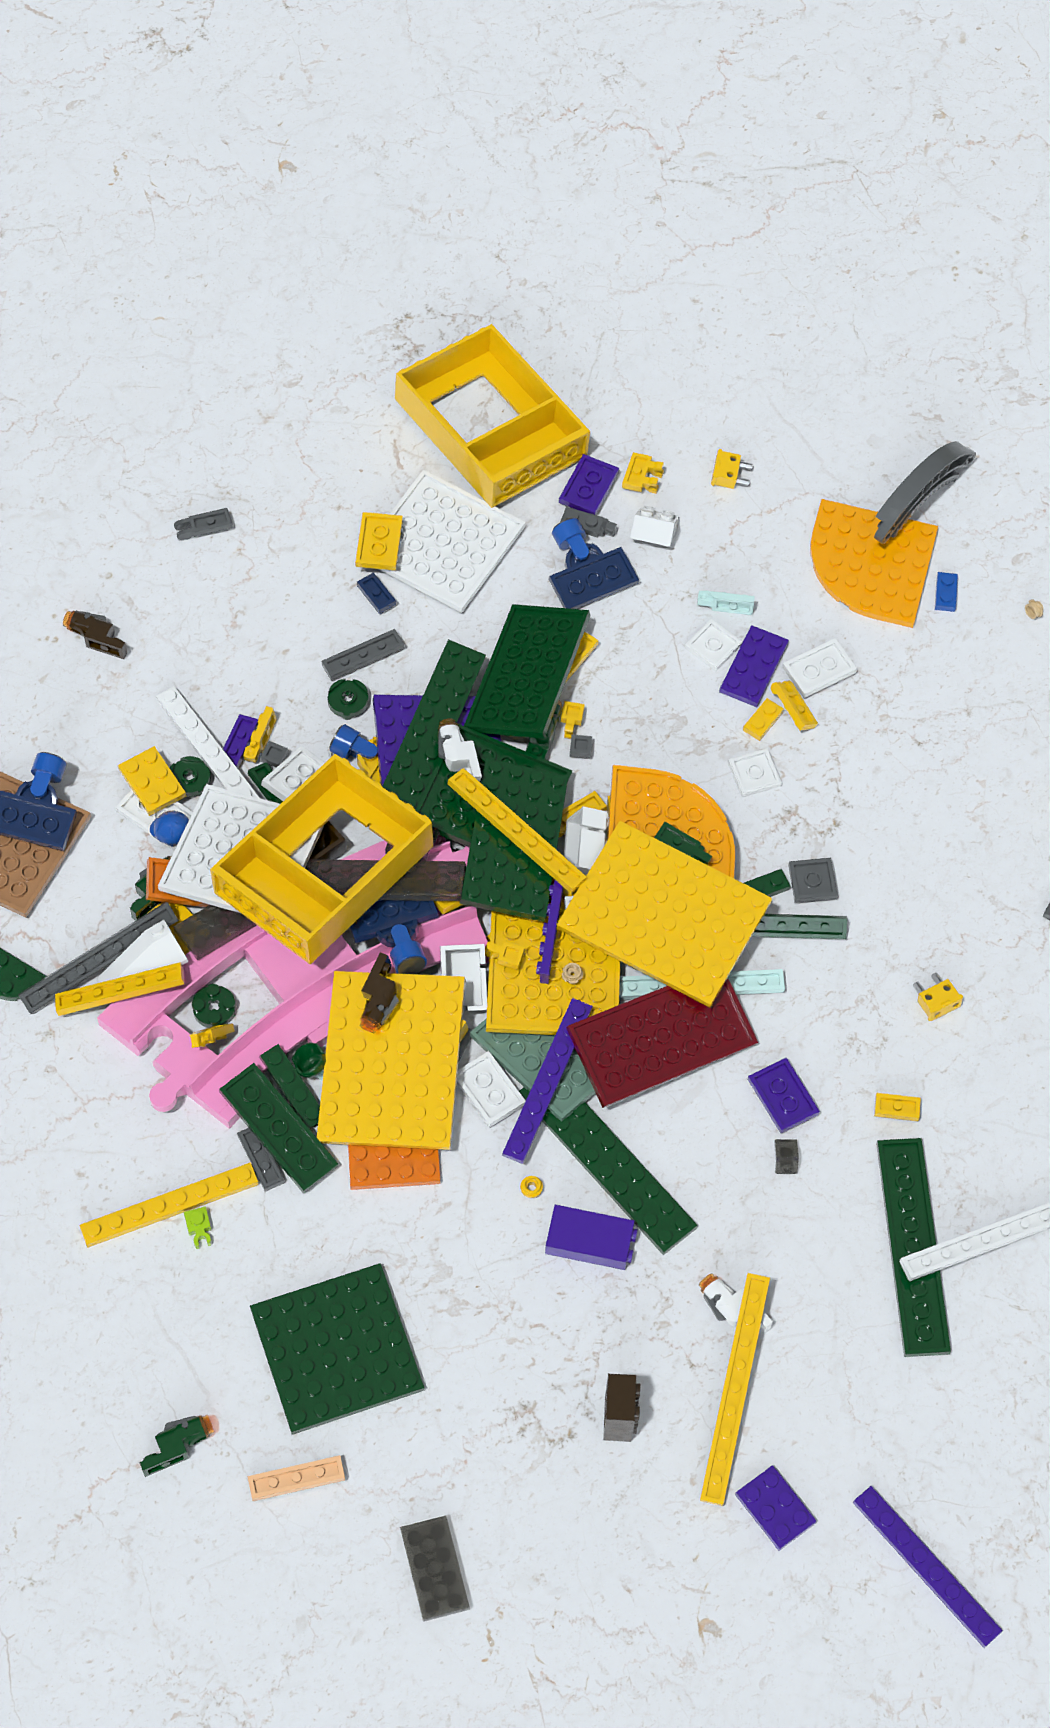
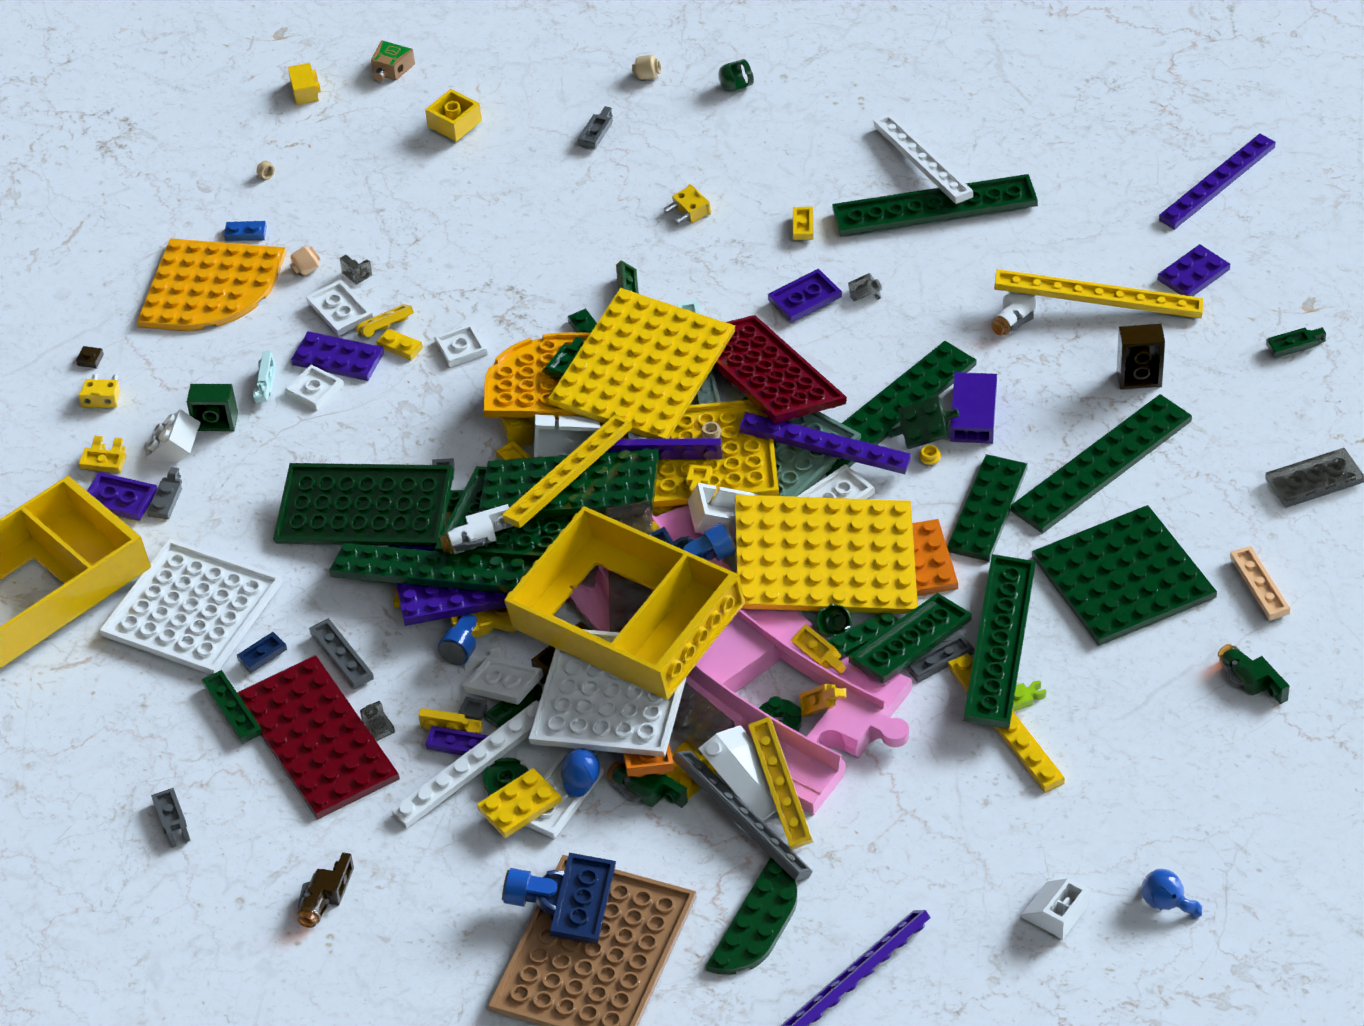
camera: 90 degrees left, 15 degrees down
(261, 1209) = (999, 641): none -> dark green plate
(268, 1038) = (818, 649): none -> yellow hinge
(273, 634) = (318, 737): none -> dark red plate
(277, 680) = (376, 721): none -> clear smoke bracket
(316, 569) = (231, 706): none -> dark green plate
(352, 708) = (397, 669): dark green plate -> none
(379, 541) = (200, 648): yellow plate -> none
(380, 993) = (764, 552): dark brown plate -> none
(452, 1232) = (987, 507): none -> dark green plate
(497, 1356) = (1101, 463): none -> dark green plate
(568, 1181) = (923, 422): none -> dark green plate
(588, 571) = (229, 478): dark blue plate -> none
(644, 1593) = (1295, 341): none -> dark green hinge
(684, 554) = (213, 406): none -> dark green brick
(780, 463) = (89, 357): none -> dark brown plate
(812, 880) = (577, 293): dark grey plate -> none
(871, 681) = (355, 271): none -> clear smoke bracket
(889, 639) = (304, 260): none -> light nougat head
(919, 484) = (134, 226): dark grey gear -> none

